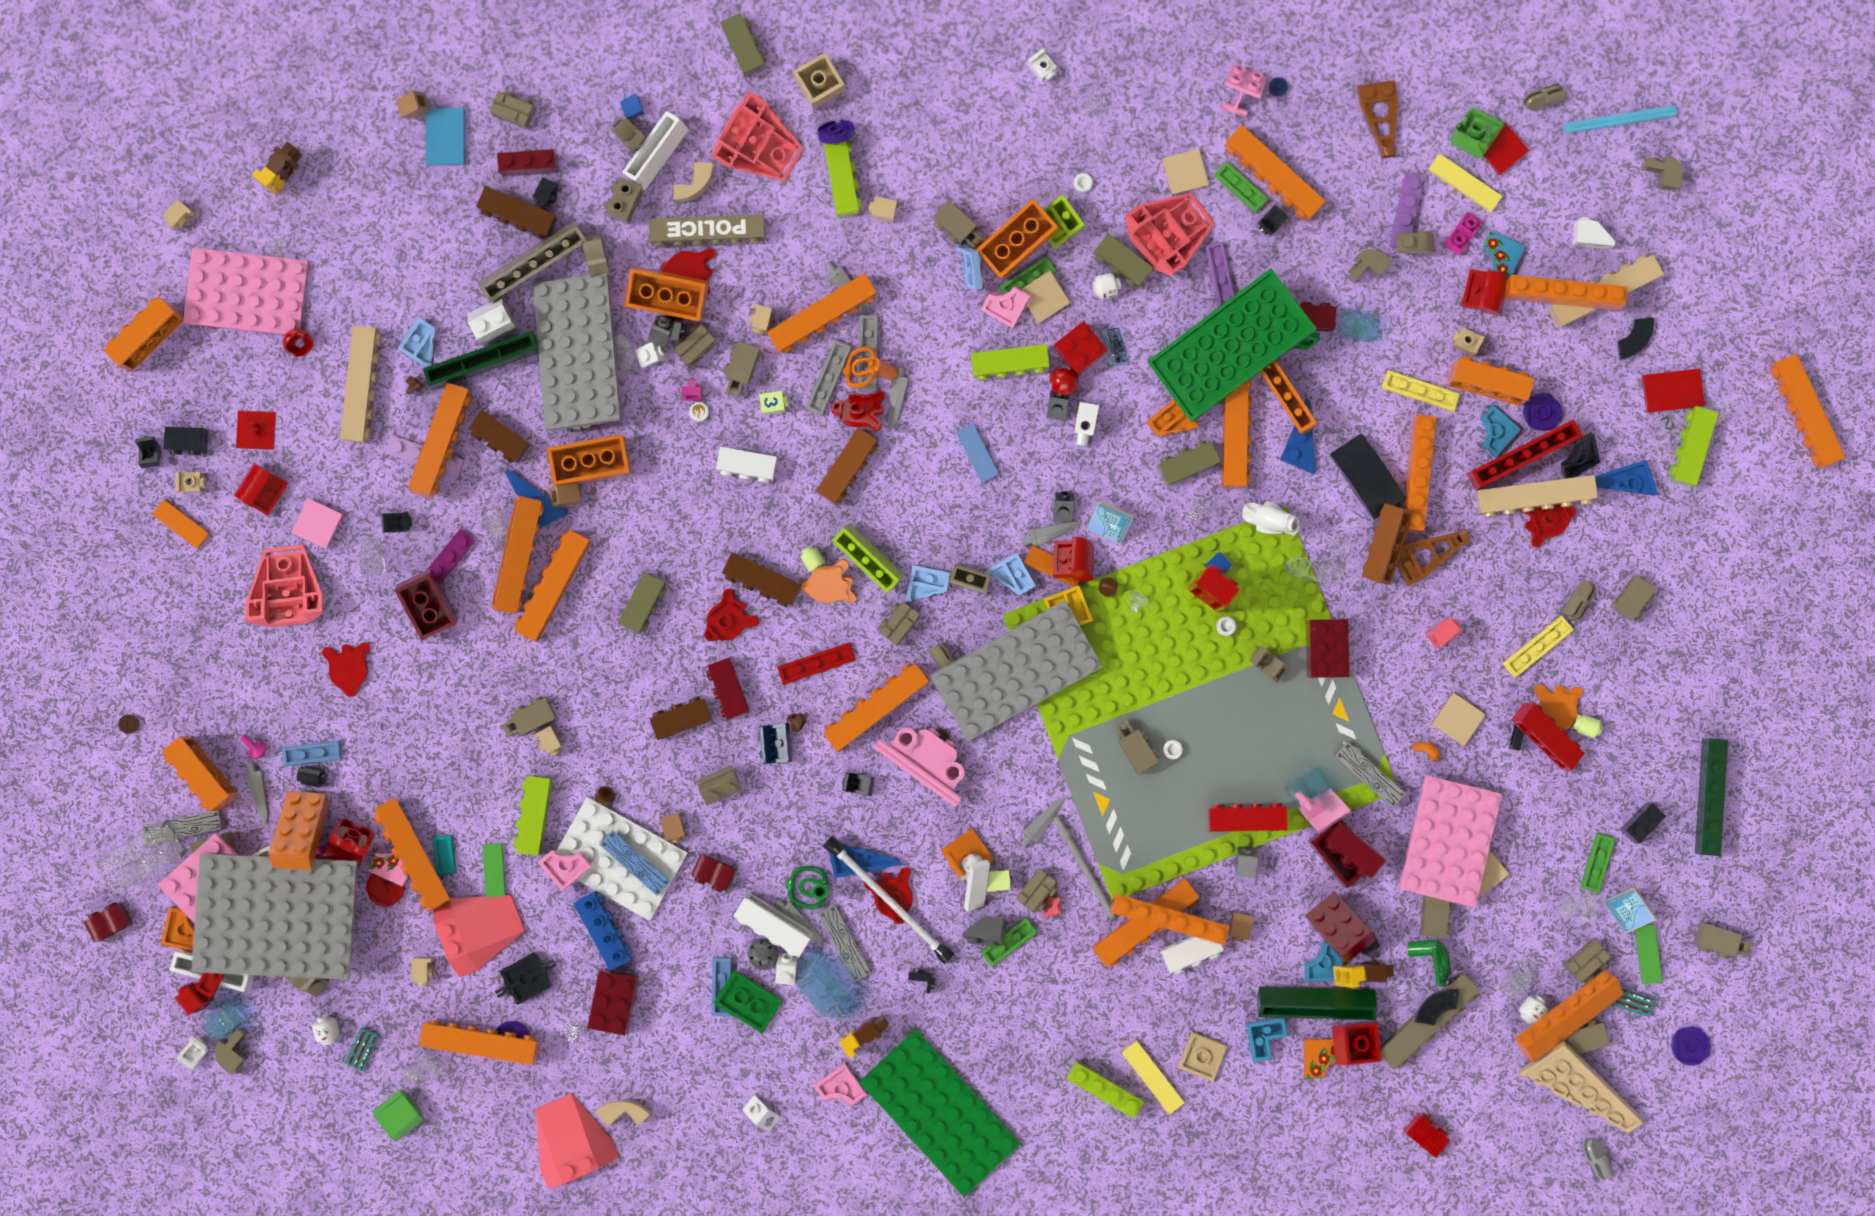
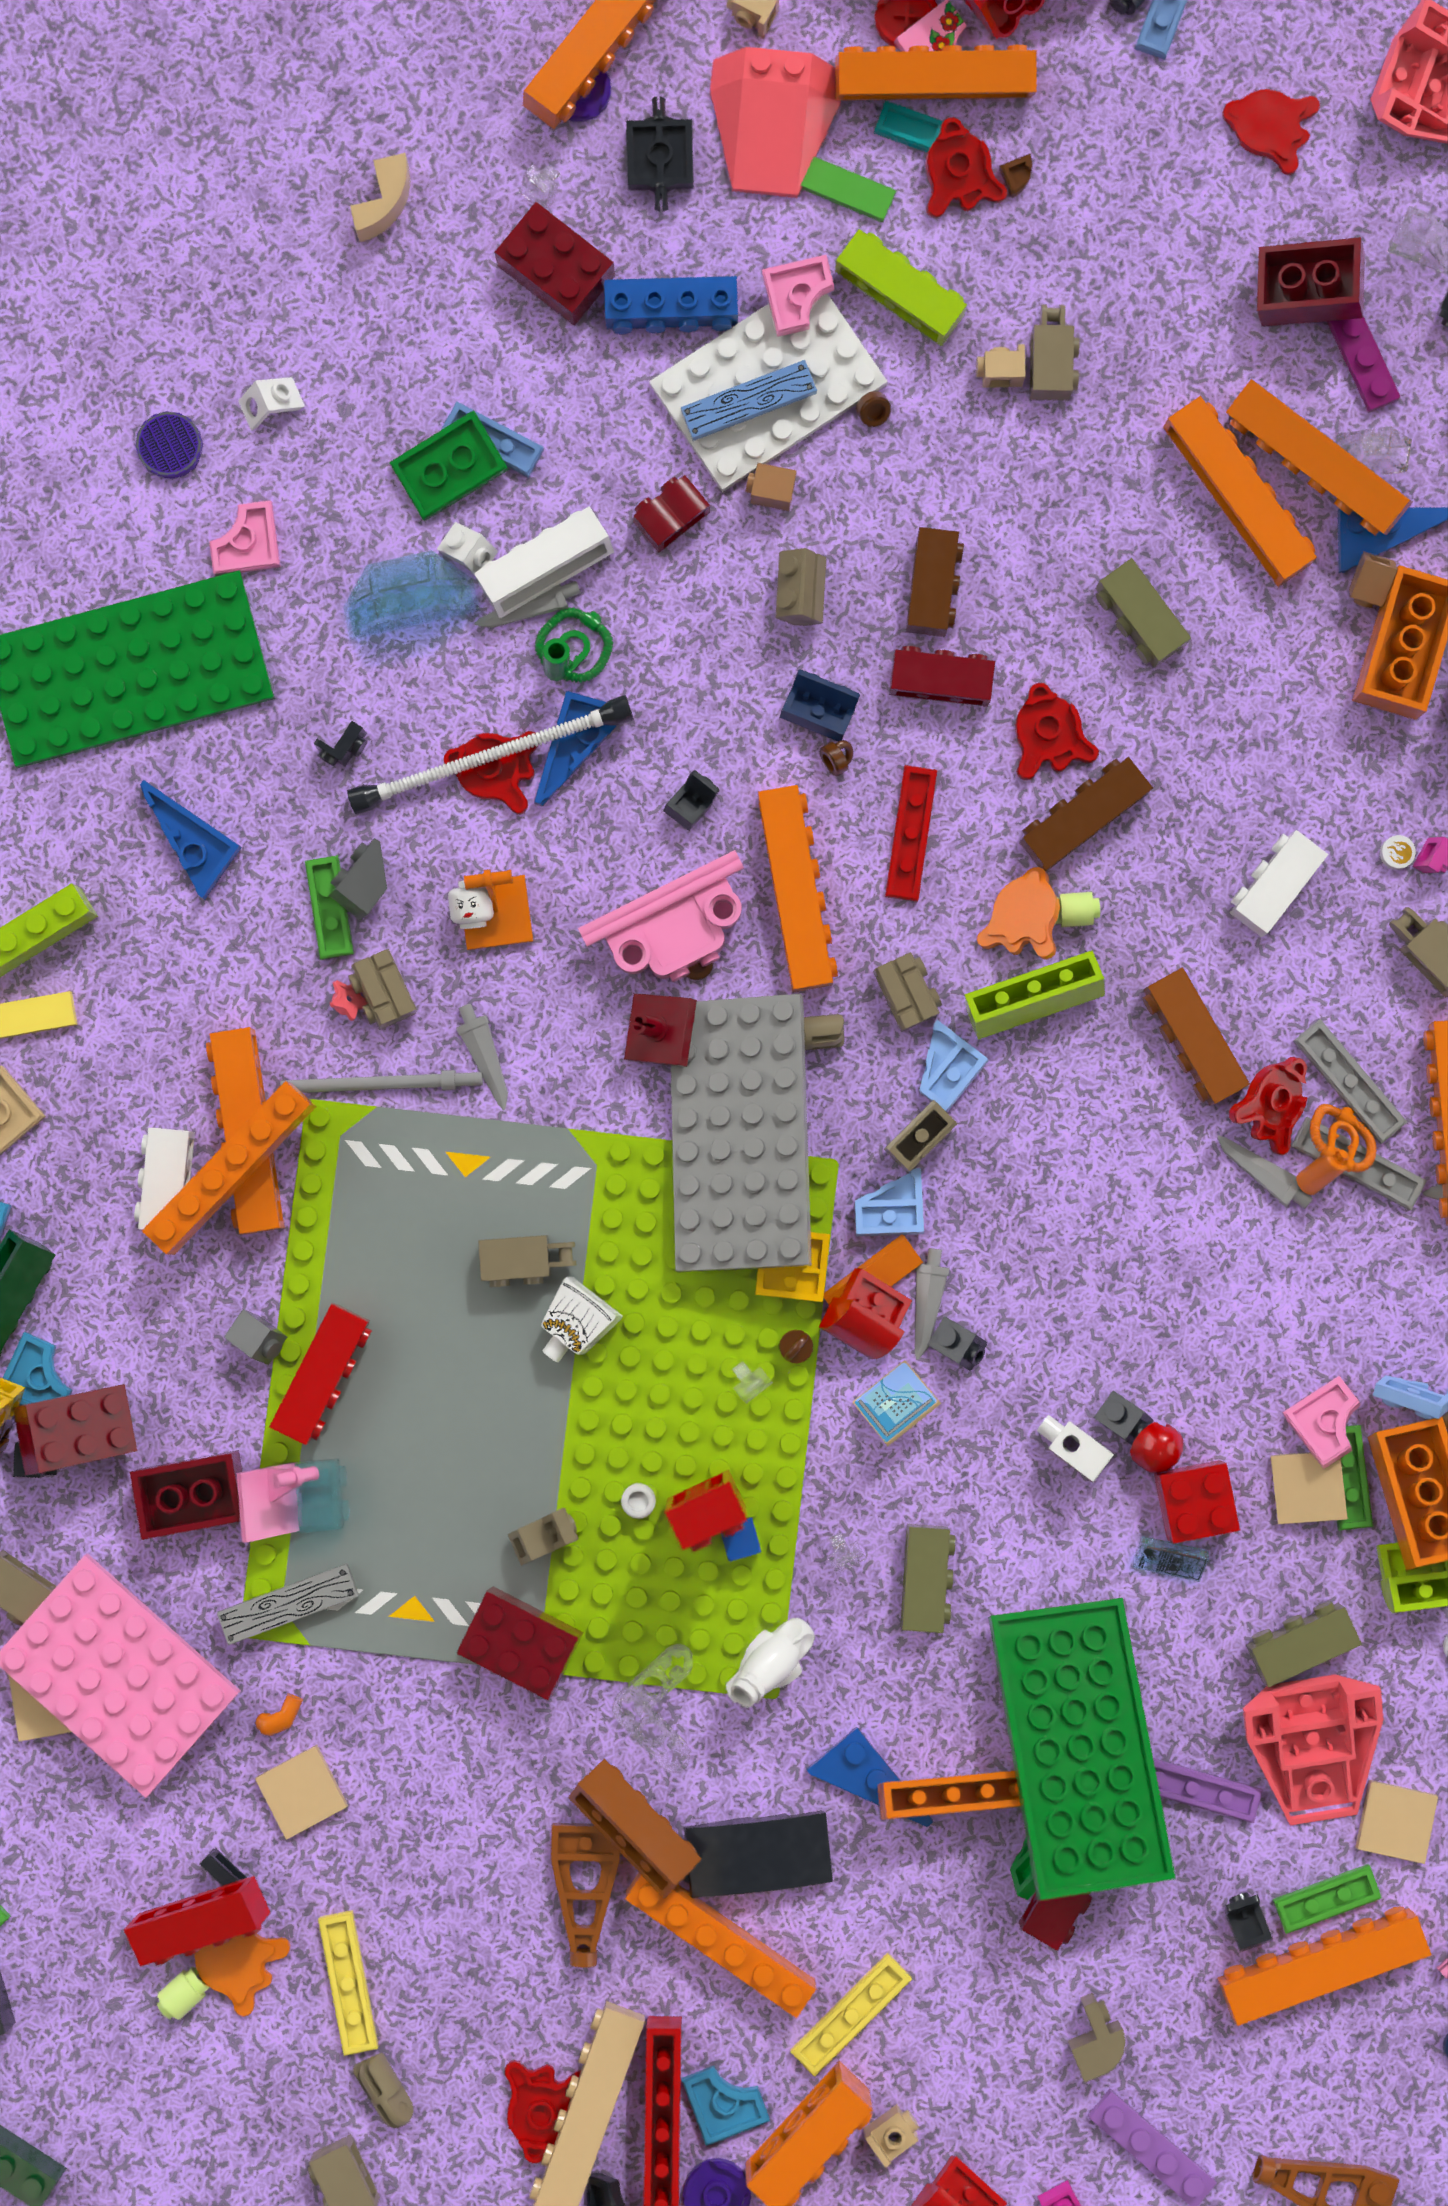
camera: 115 degrees right, 0 degrees up
(441, 786) = (1017, 174): none -> reddish brown tile
(455, 817) = (960, 170): none -> red tile
(570, 1141) = (380, 100): coral wedge -> none
(762, 953) = (510, 523): dark grey helmet -> none
(773, 402) = (1354, 973): yellowish green brick -> none
(811, 1155) = (169, 445): none -> tile
(844, 943) = (460, 657): light grey tile -> none
(863, 1034) = (304, 609): reddish brown hips -> none
(976, 885) = (439, 898): white tile -> none
(977, 453) = (1112, 1252): medium blue tile -> none
(984, 738) = (660, 1029): none -> dark red tile
(998, 880) = (432, 936): yellowish green brick -> none
(1010, 361) = (1232, 1379): lime brick -> none
(1012, 1026) = (200, 847): none -> blue wing
(1106, 286) = (1276, 1596): white head -> none
(1152, 704) = (576, 1320): none -> white torso
(1170, 421) = (1008, 1584): orange wing -> none
(1172, 749) = (489, 1314): white tile -> none
(1236, 438) = (927, 1675): orange brick -> none
(1240, 926) = (162, 1275): medium nougat brick -> none
(1354, 851) = (179, 1513): dark red brick -> none
(1358, 326) = (1006, 1969): clear light blue brick -> none
(1417, 243) = (1091, 2141): dark tan brick -> none
(1443, 632) = (447, 1843): coral brick -> none

